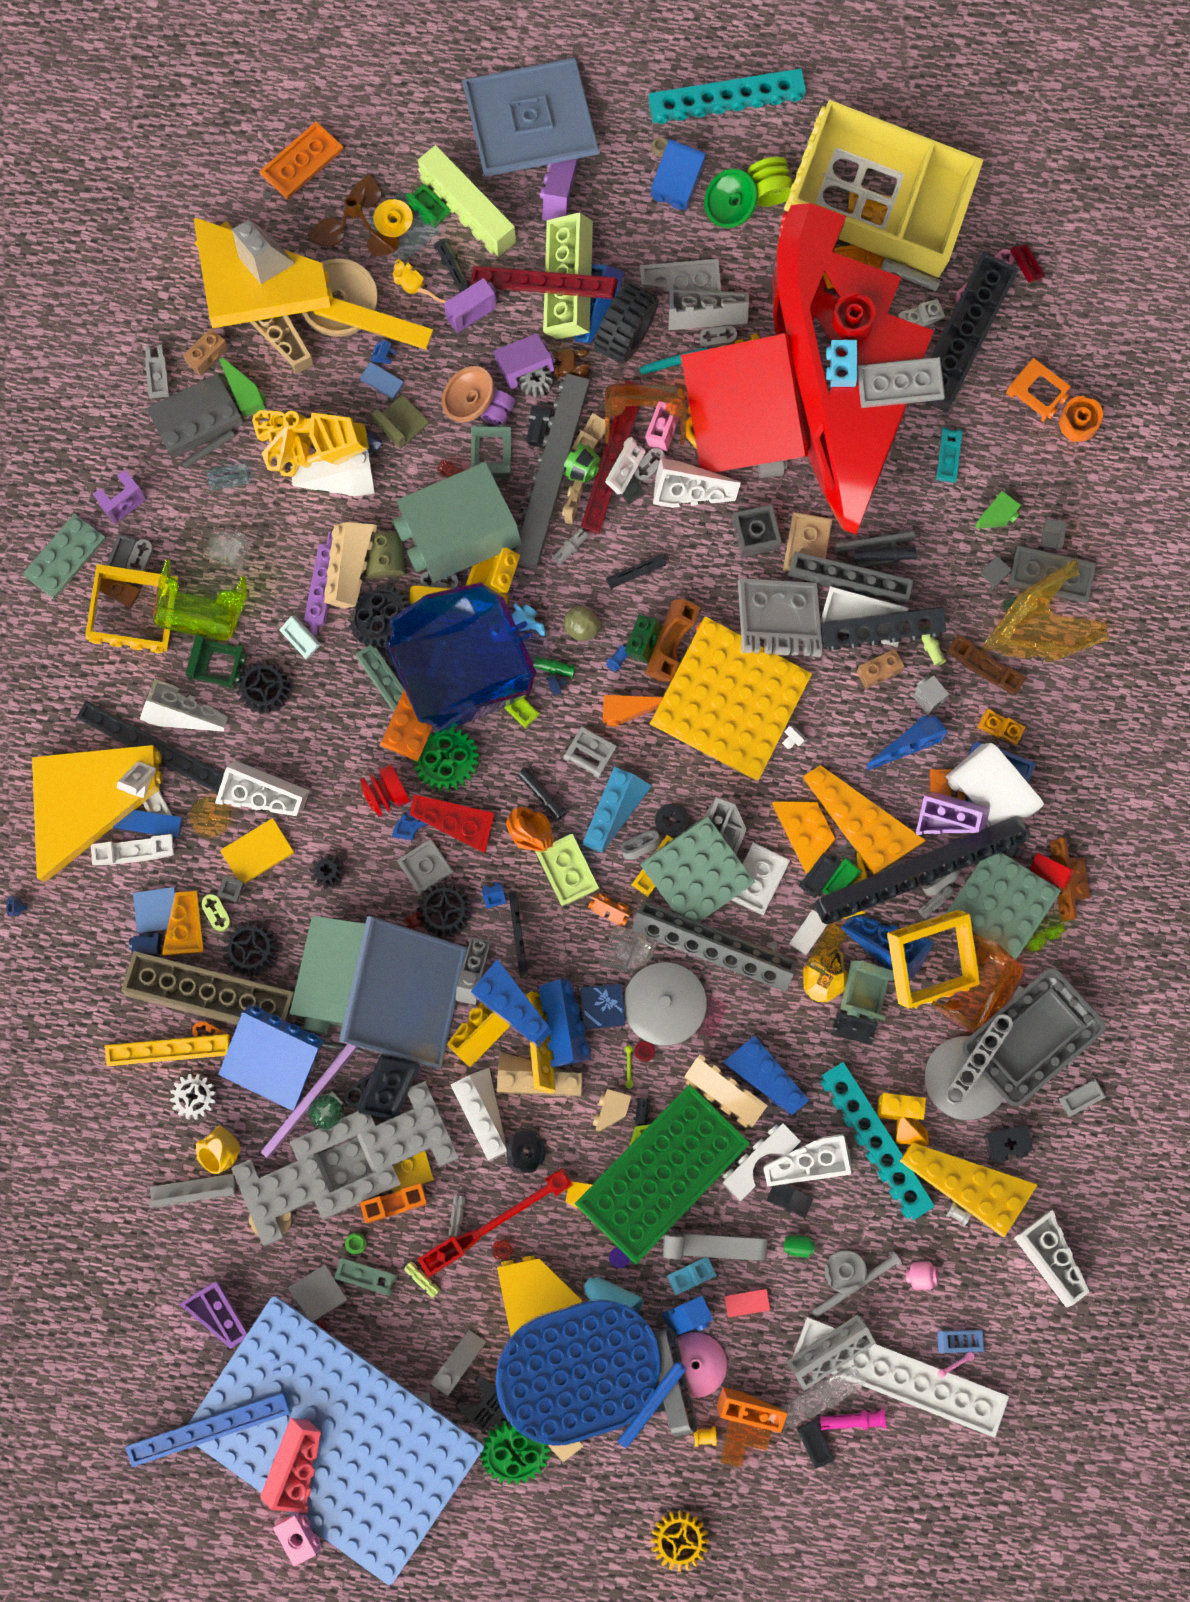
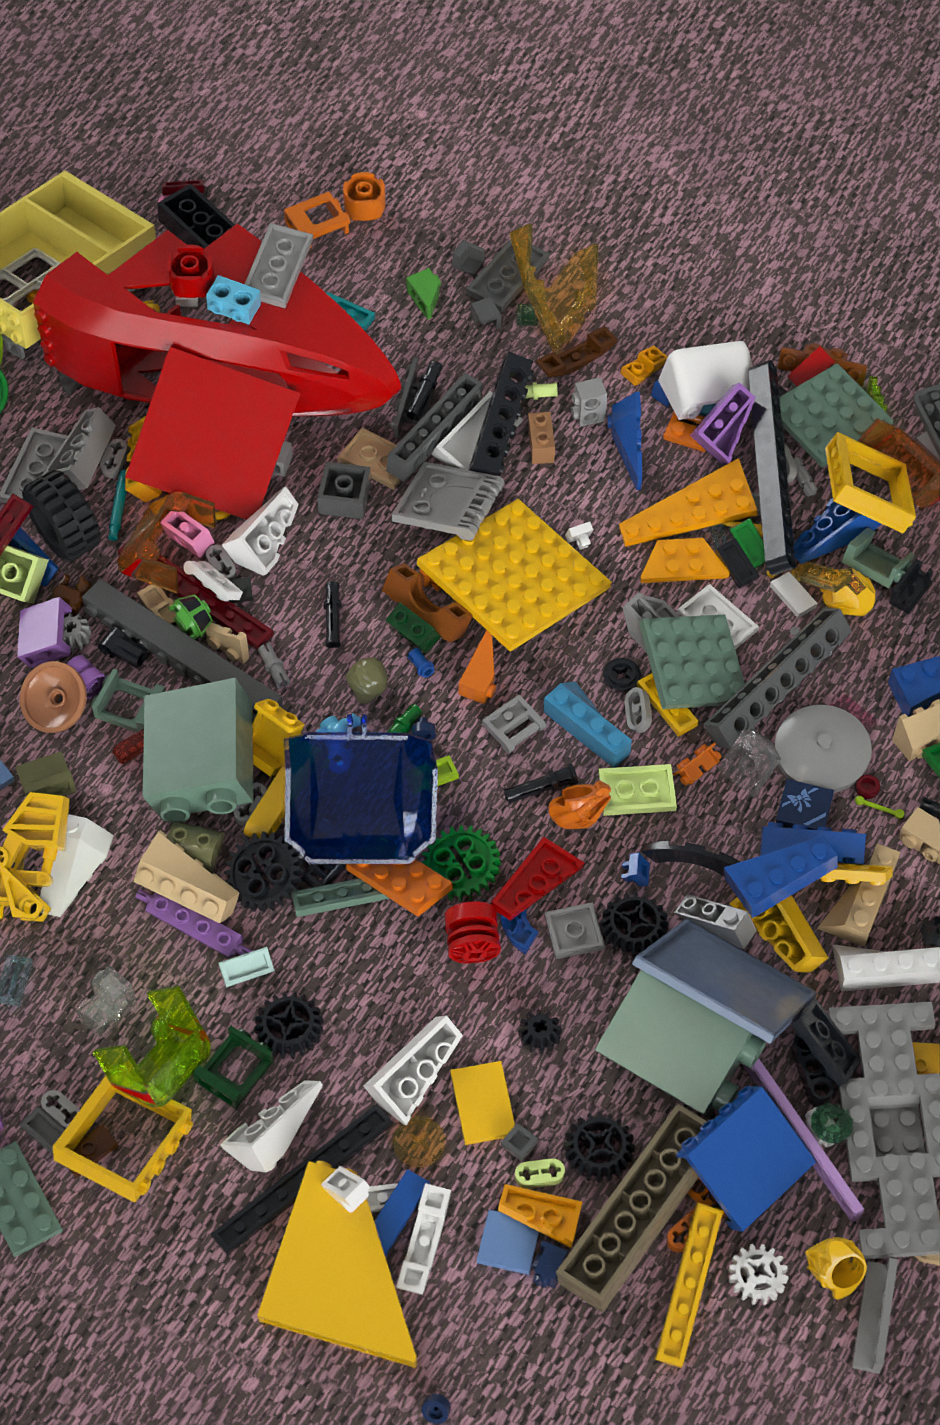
camera: 70 degrees left, 20 degrees down
(413, 920) = (630, 958): clear red bush -> none

